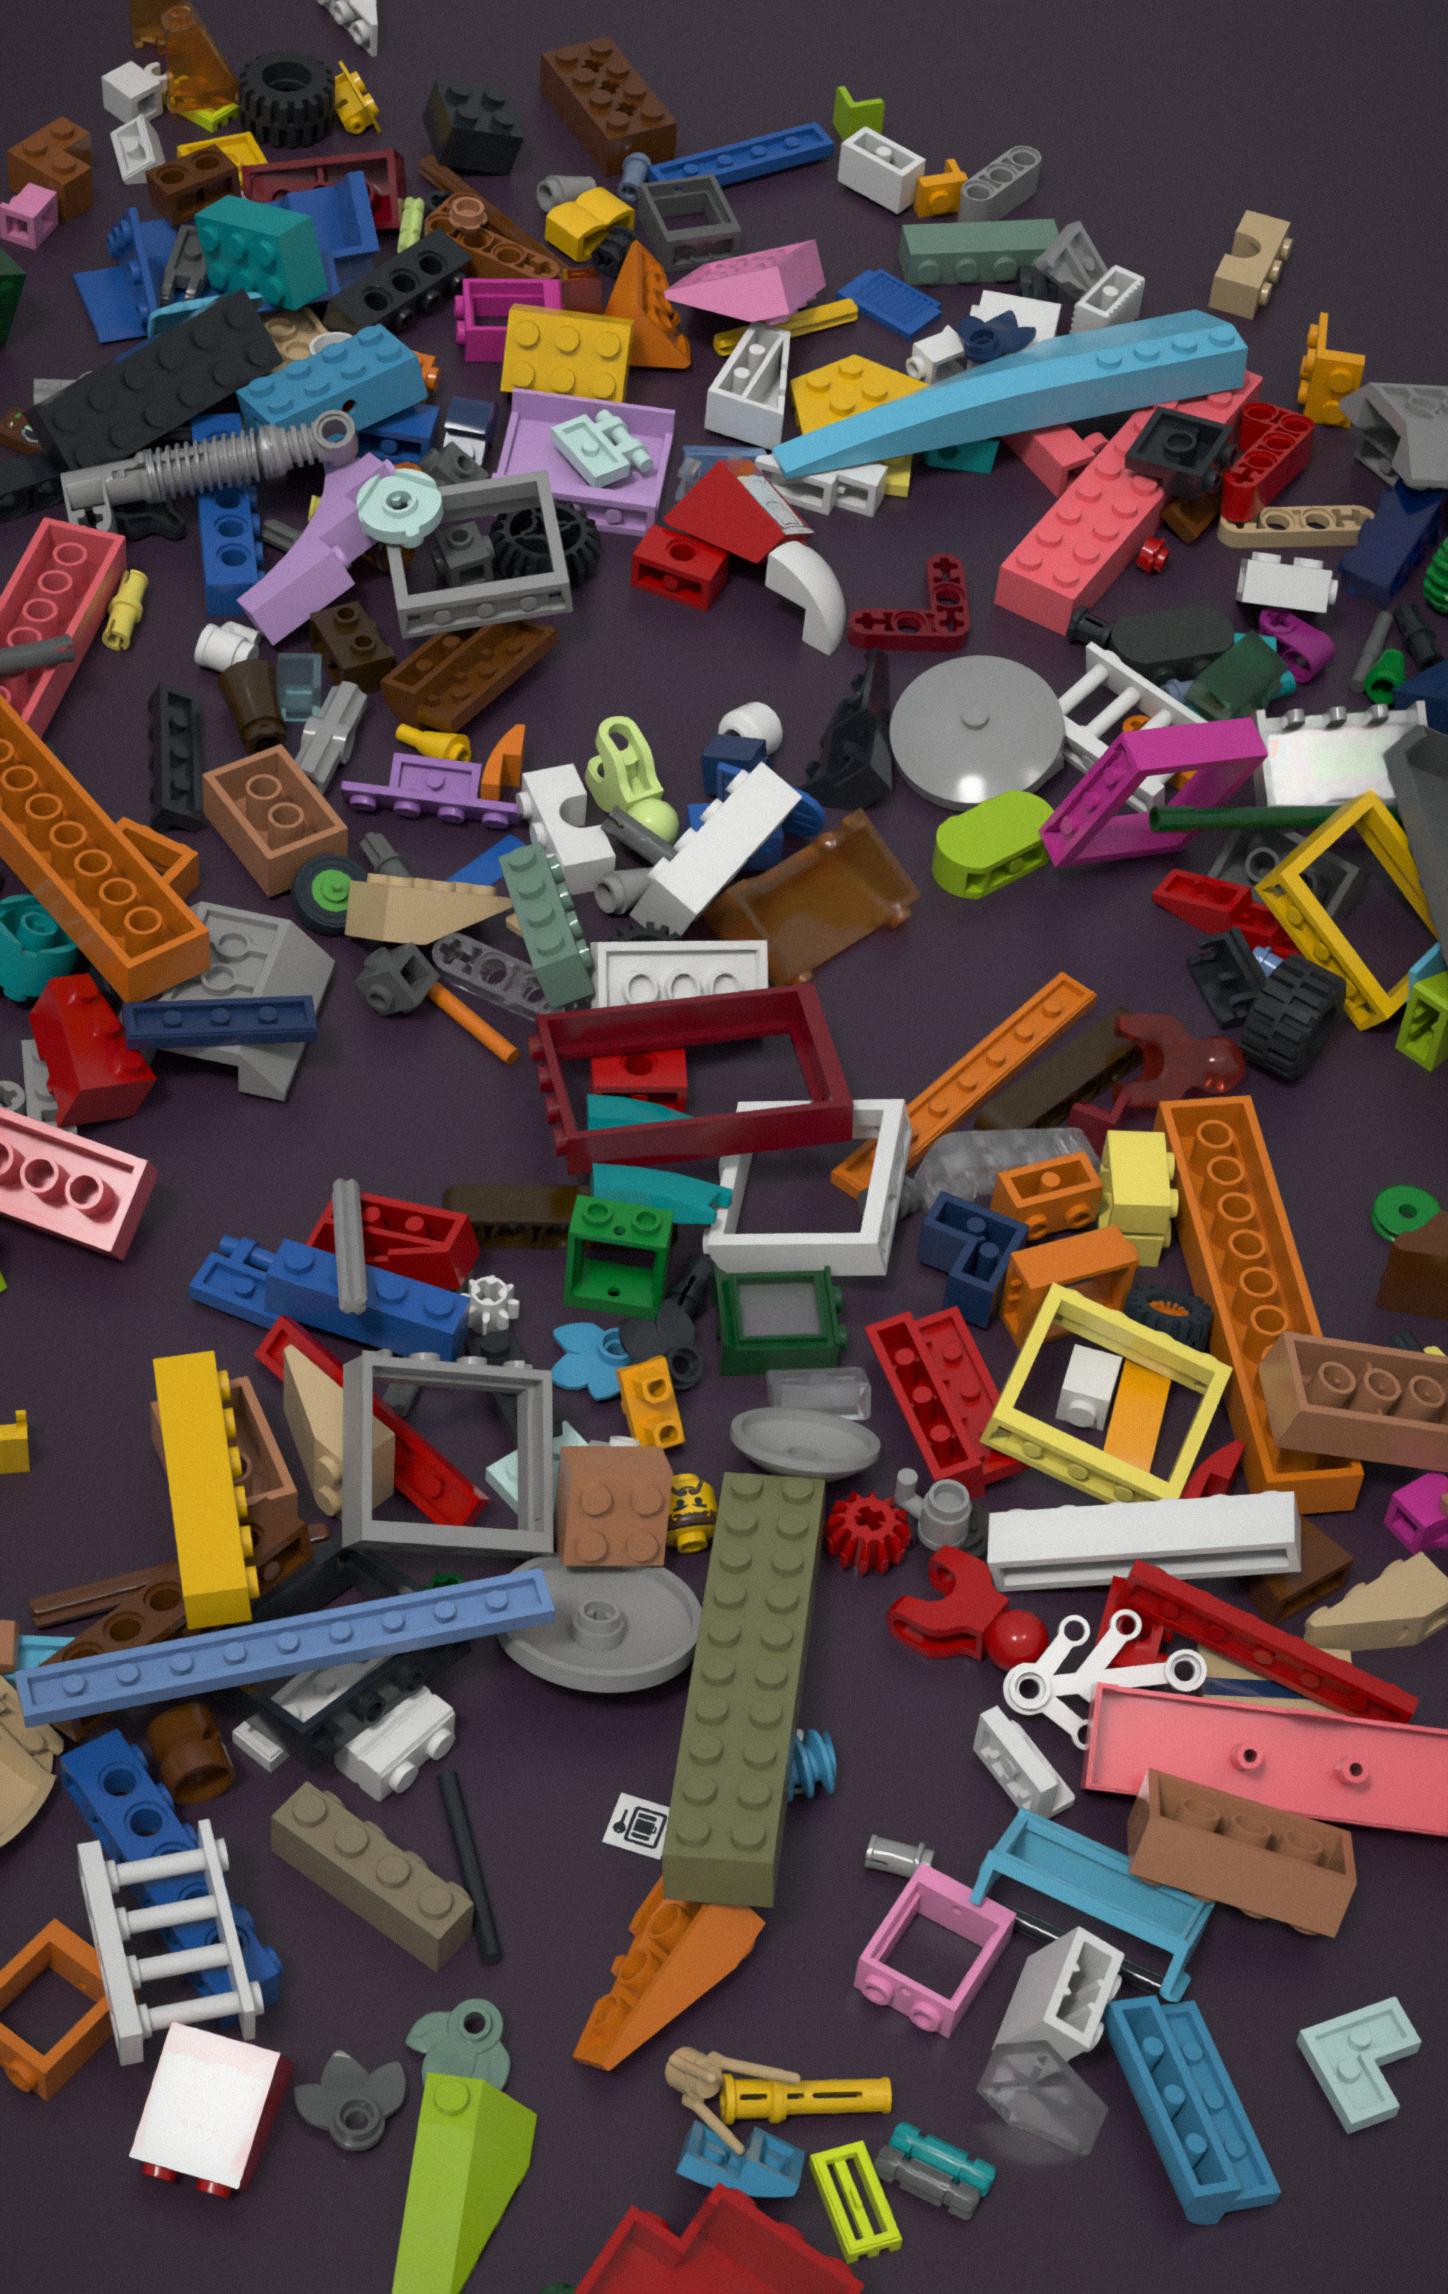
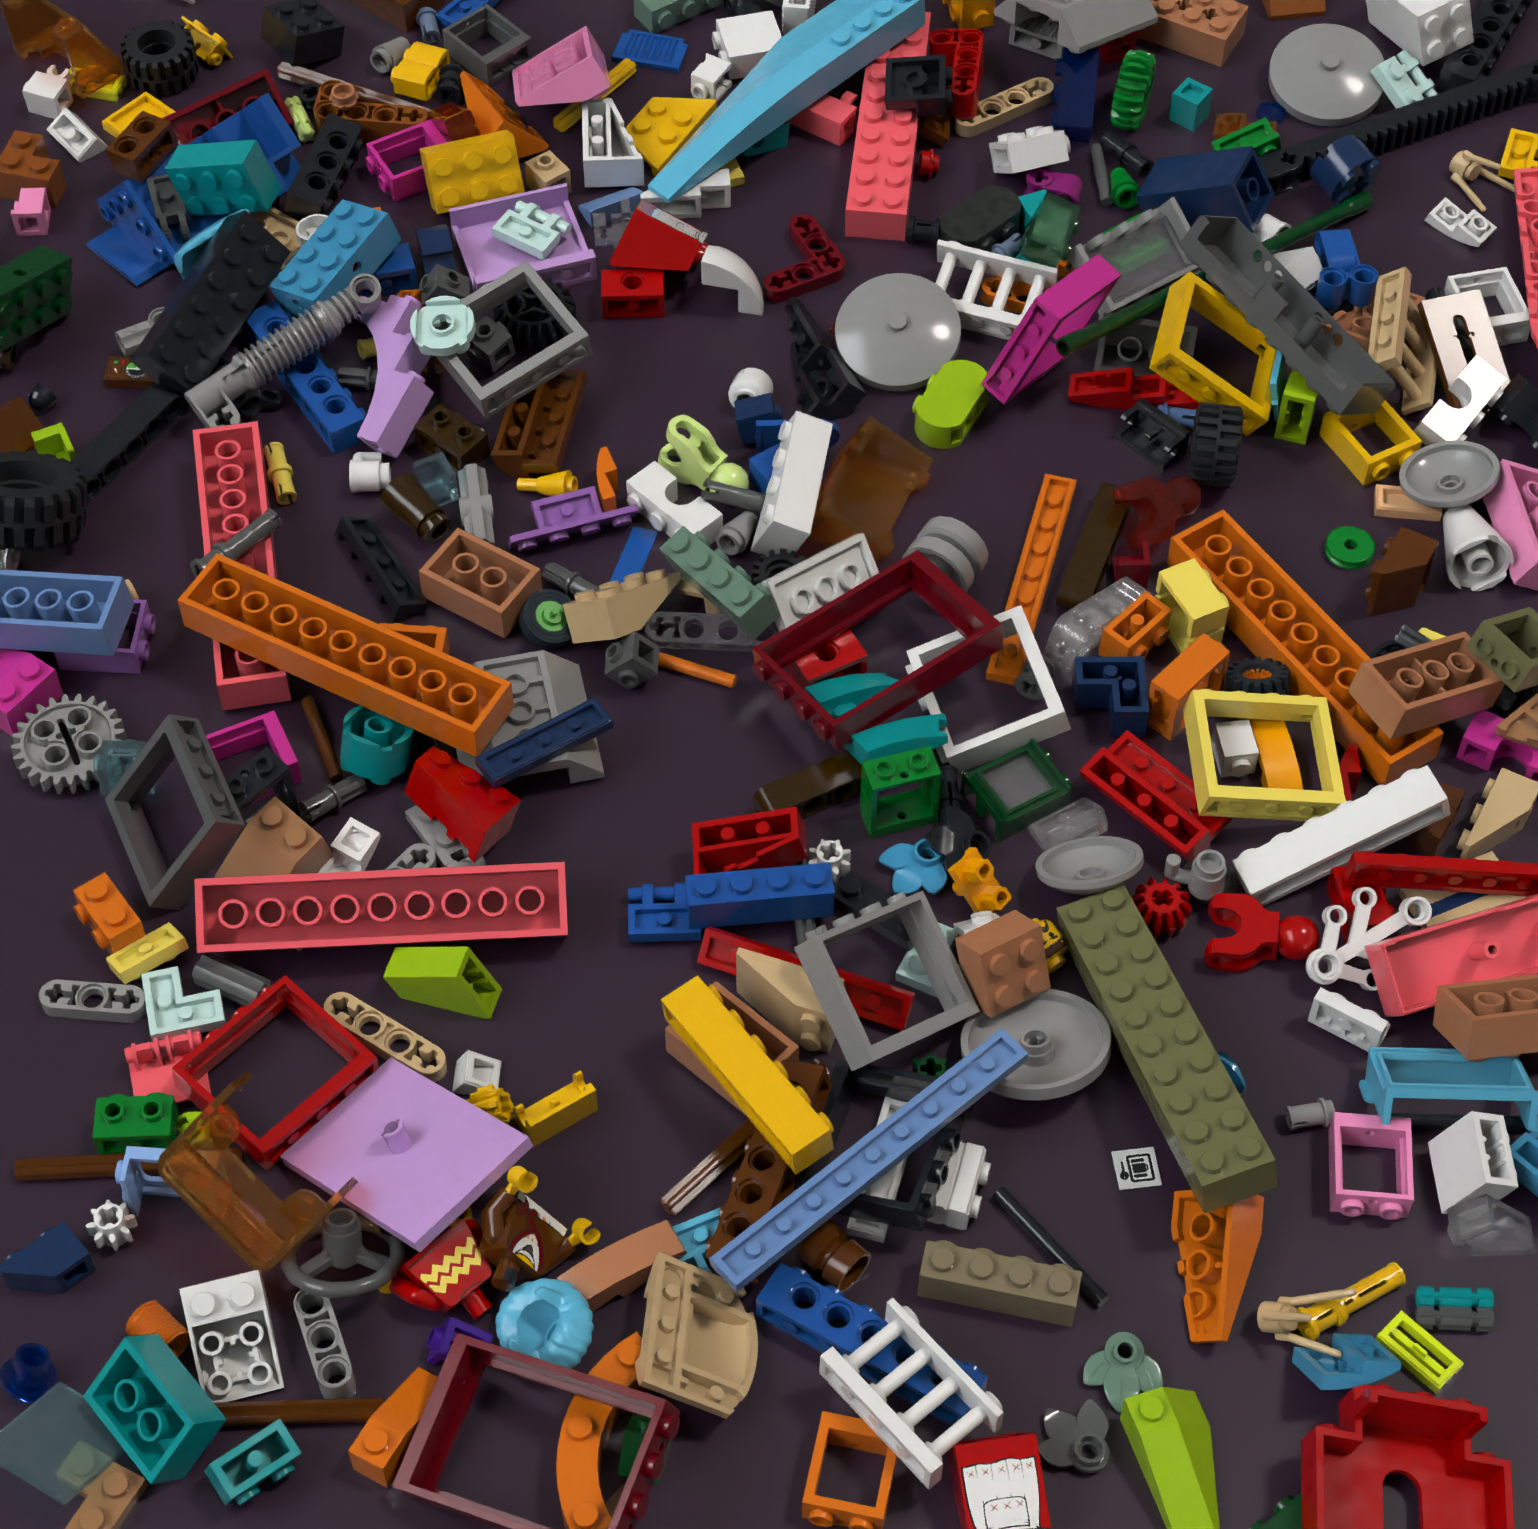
camera: 20 degrees left, 5 degrees up
(349, 1246) = (735, 862): light grey axle -> none
(665, 389) = (547, 171): none -> tan brick
(864, 1012) = (952, 548): none -> light grey wheel
(991, 338) = (745, 50): dark blue plate -> none

